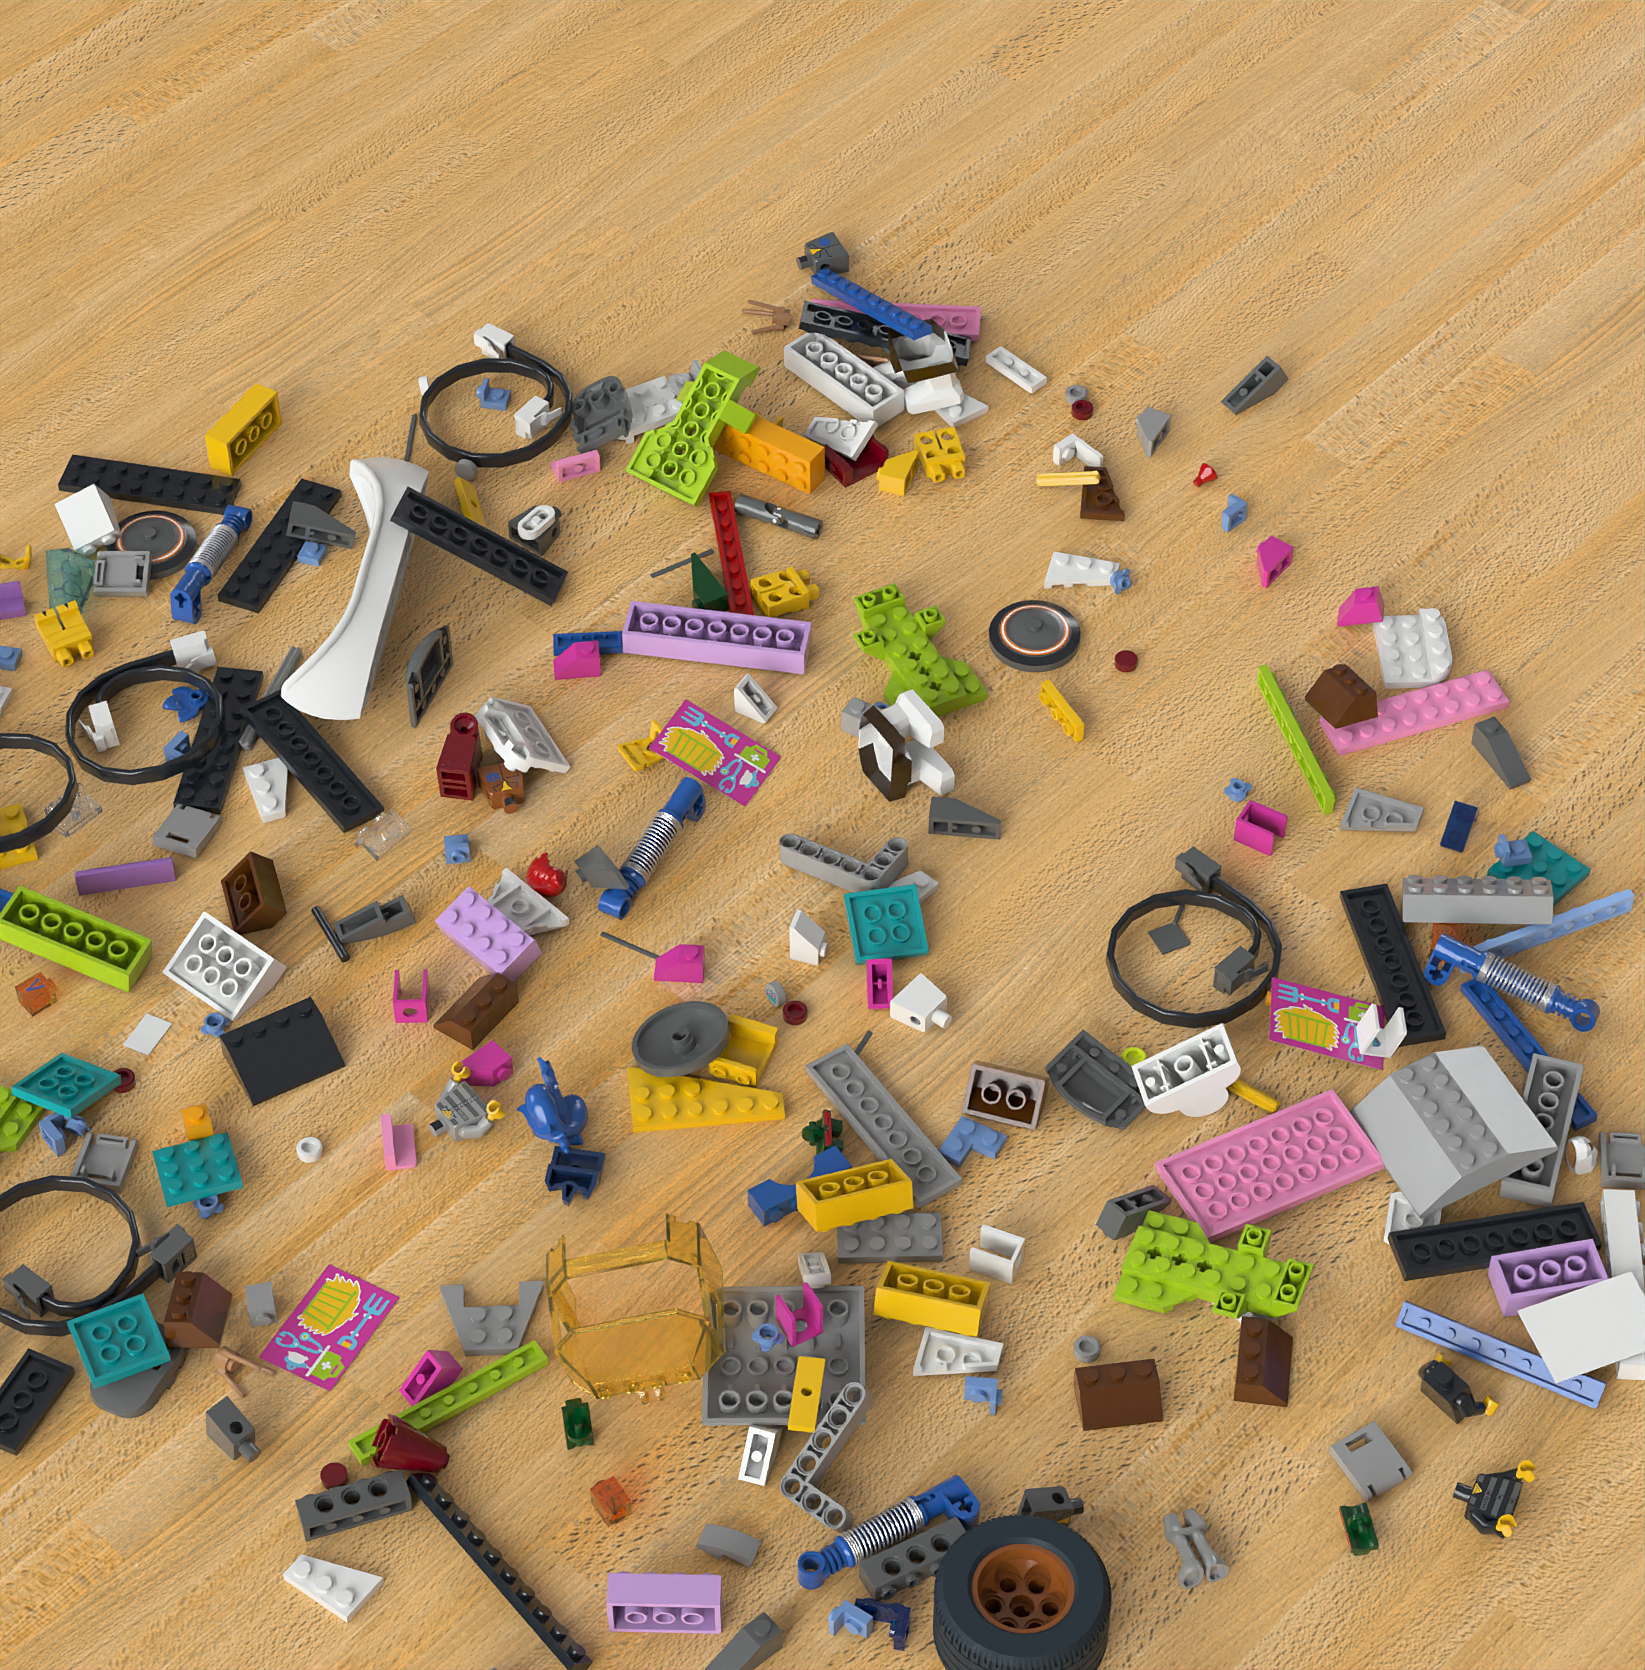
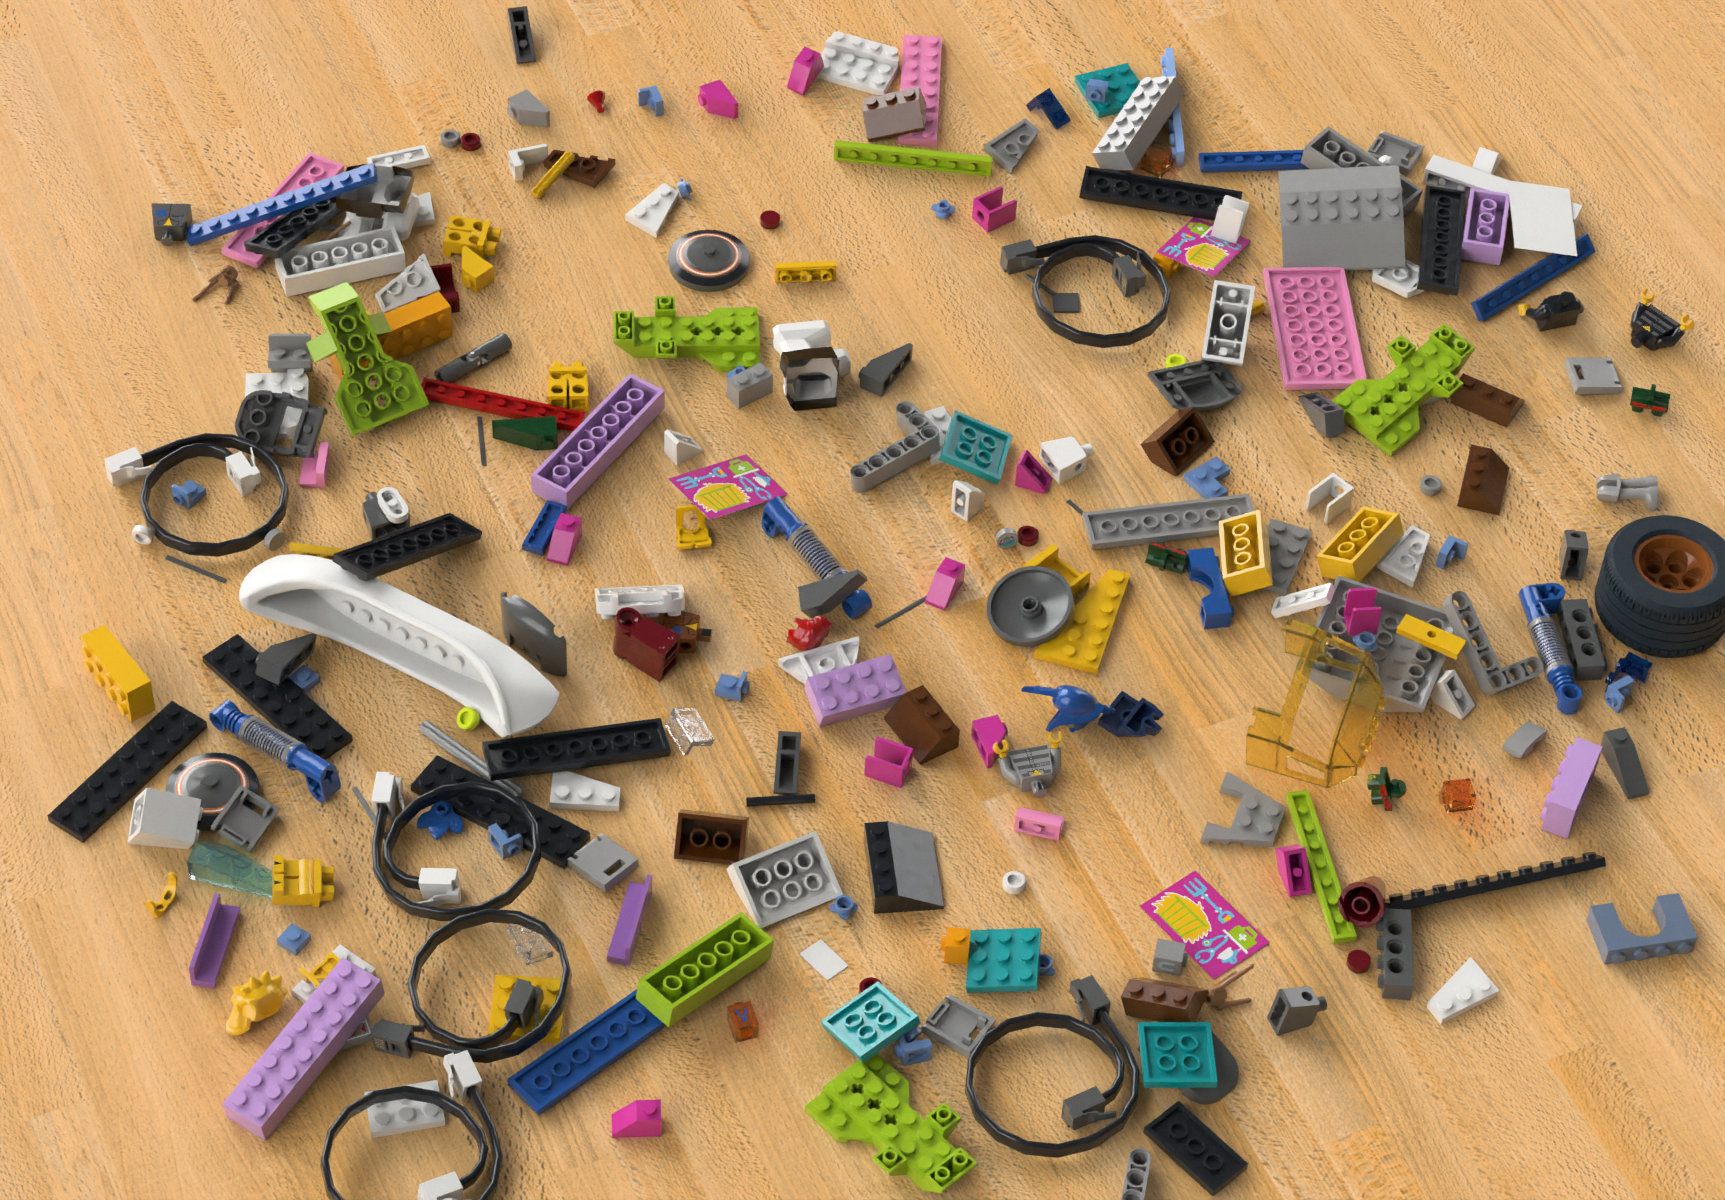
camera: 70 degrees left, 0 degrees up
(1488, 969) = (1215, 138): blue piece -> none
(1500, 753) = (986, 60): dark grey slope -> none

